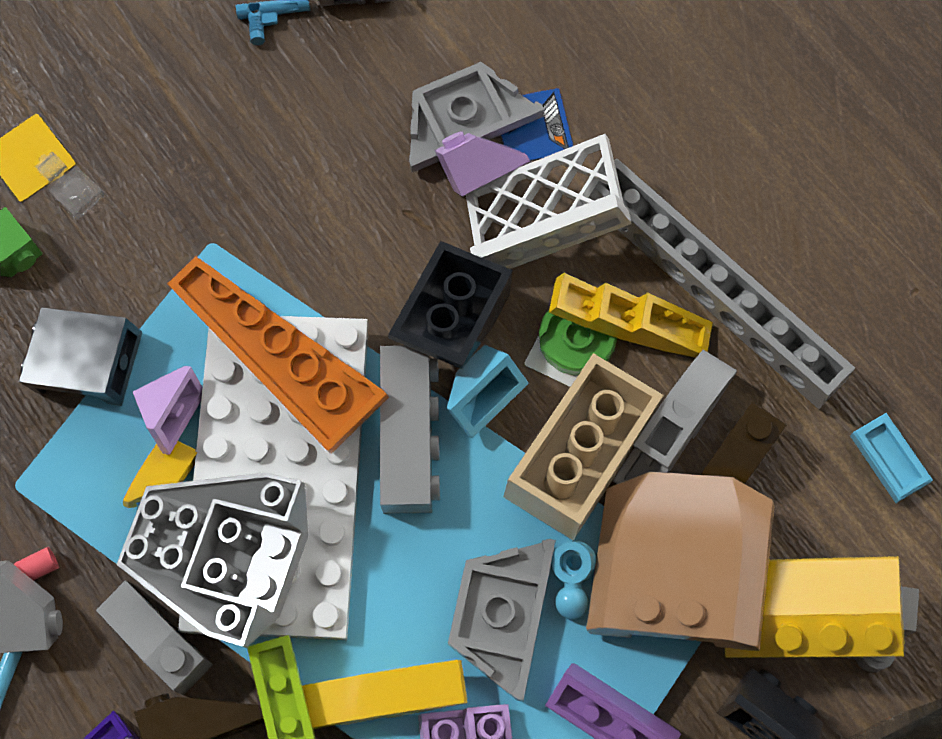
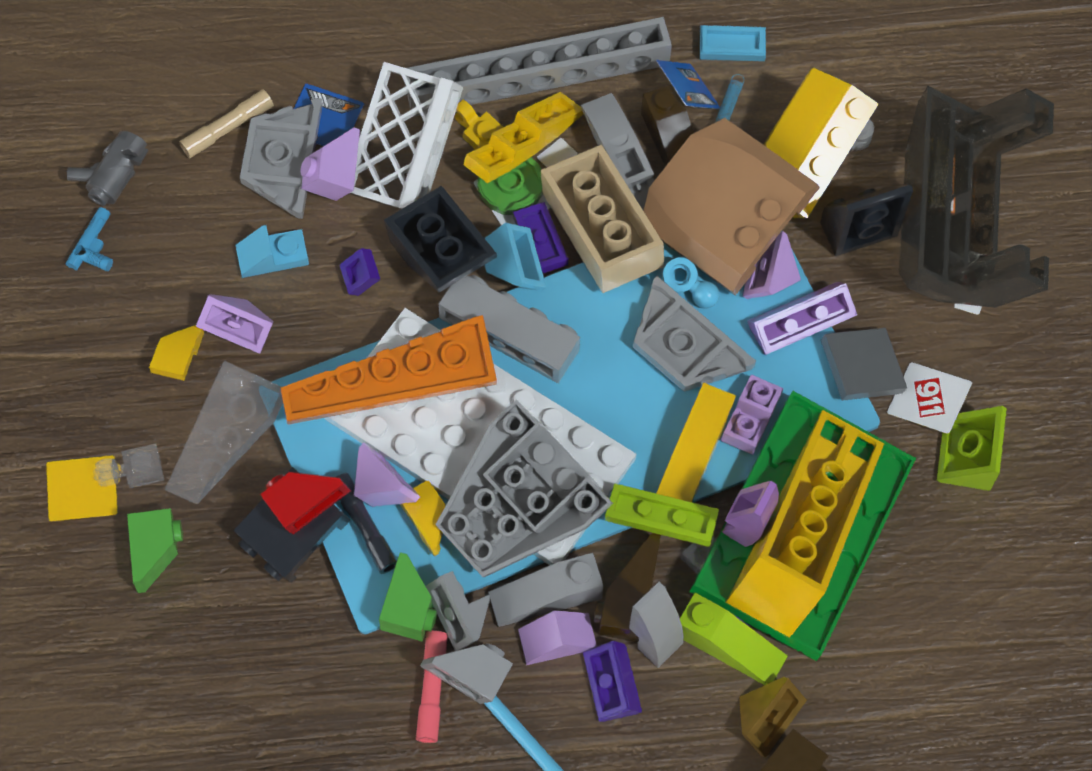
camera: 65 degrees left, 5 degrees down
(57, 509) = (407, 603): none -> bright green slope
(72, 573) = (459, 618): none -> light grey slope
(88, 343) = (302, 497): none -> red slope
(107, 440) = (374, 542): none -> black piece
(113, 677) = (556, 636): none -> lavender slope
(148, 236) = (228, 424): none -> clear wedge
(201, 148) = (176, 352): none -> yellow slope
(265, 178) = (235, 321): none -> lavender slope
(359, 169) = (271, 253): none -> medium azure slope
(385, 256) = (359, 272): none -> dark purple plate
(442, 38) = (242, 113): none -> tan piece
(534, 402) = (545, 236): none -> dark purple plate
(617, 271) = (478, 129): none -> yellow plate
(640, 362) = (556, 153): none -> white sticker
(643, 658) = (773, 270): none -> lavender slope
(802, 441) = (688, 84): none -> blue sticker
(823, 493) = (729, 98): none -> medium azure piece

